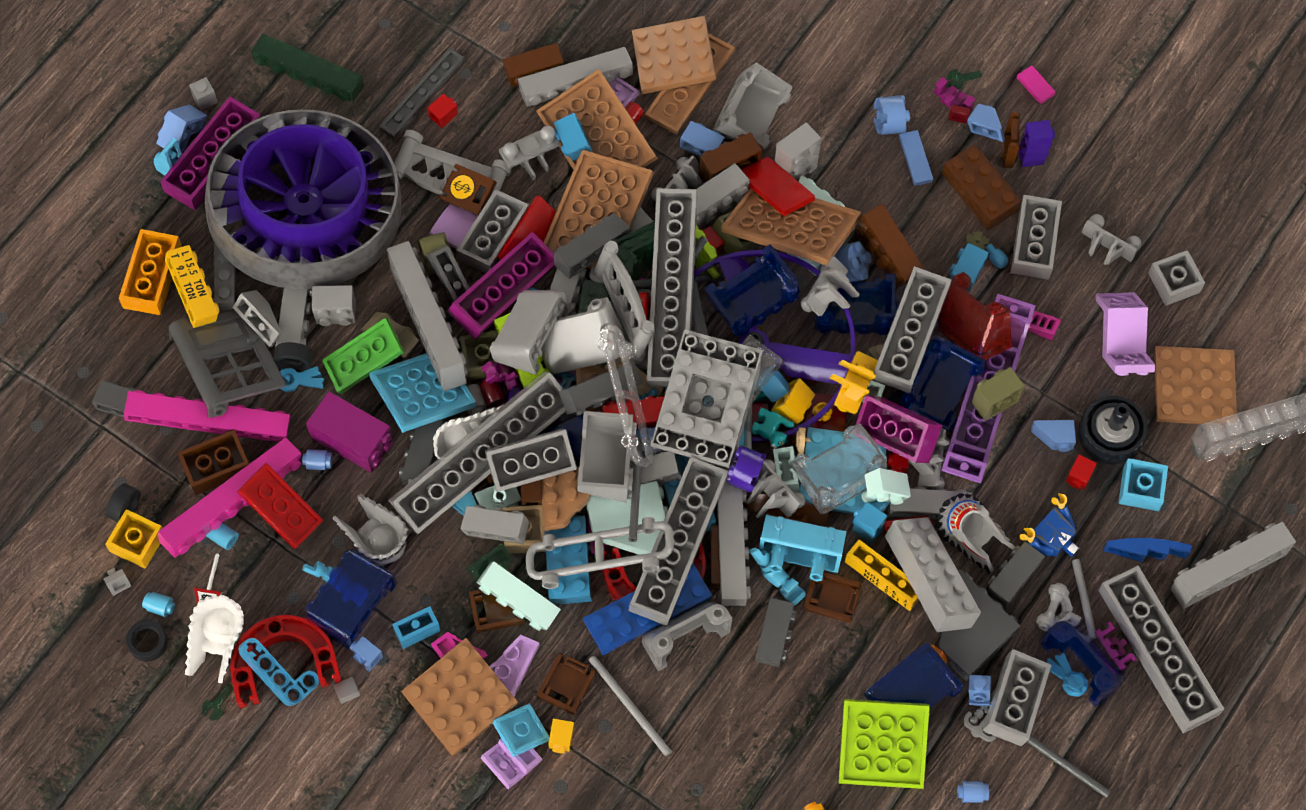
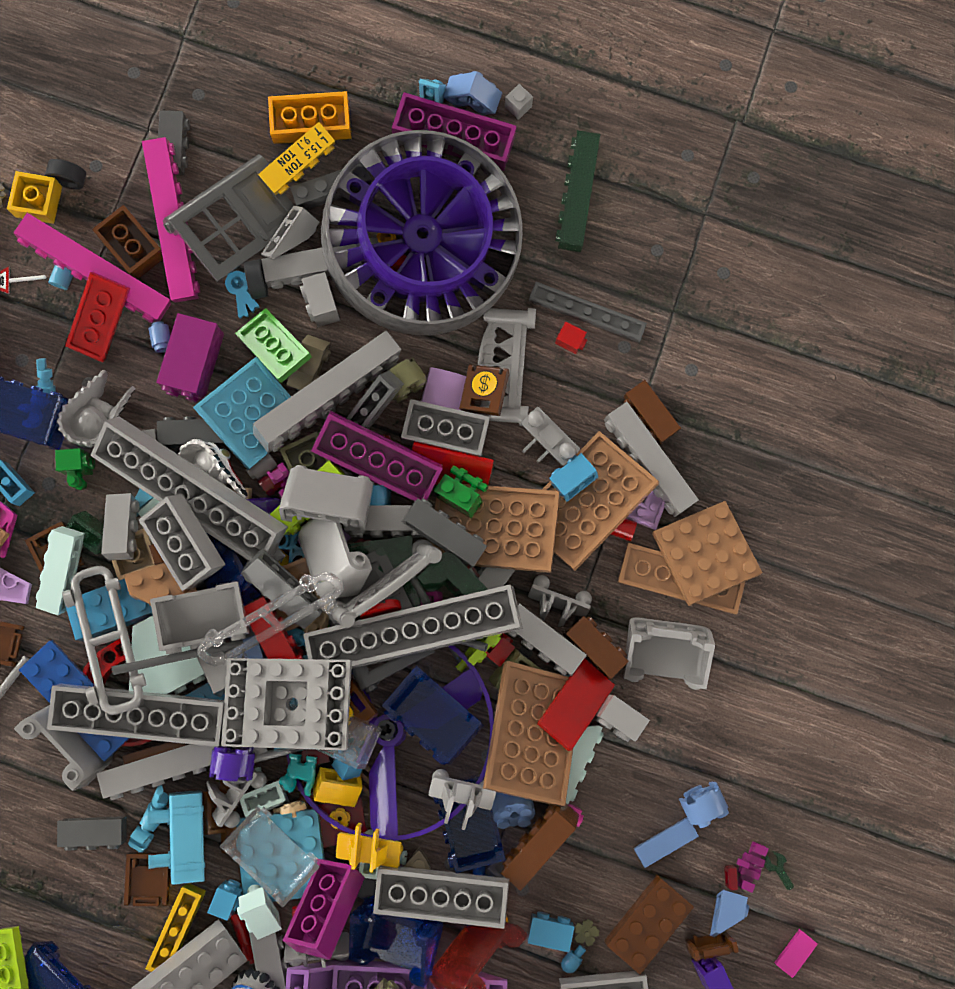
camera: 70 degrees right, 15 degrees up
(418, 561) = (75, 465): none -> green brick
(559, 231) = (458, 495): none -> green brick
(700, 139) = (615, 611): medium blue brick -> none

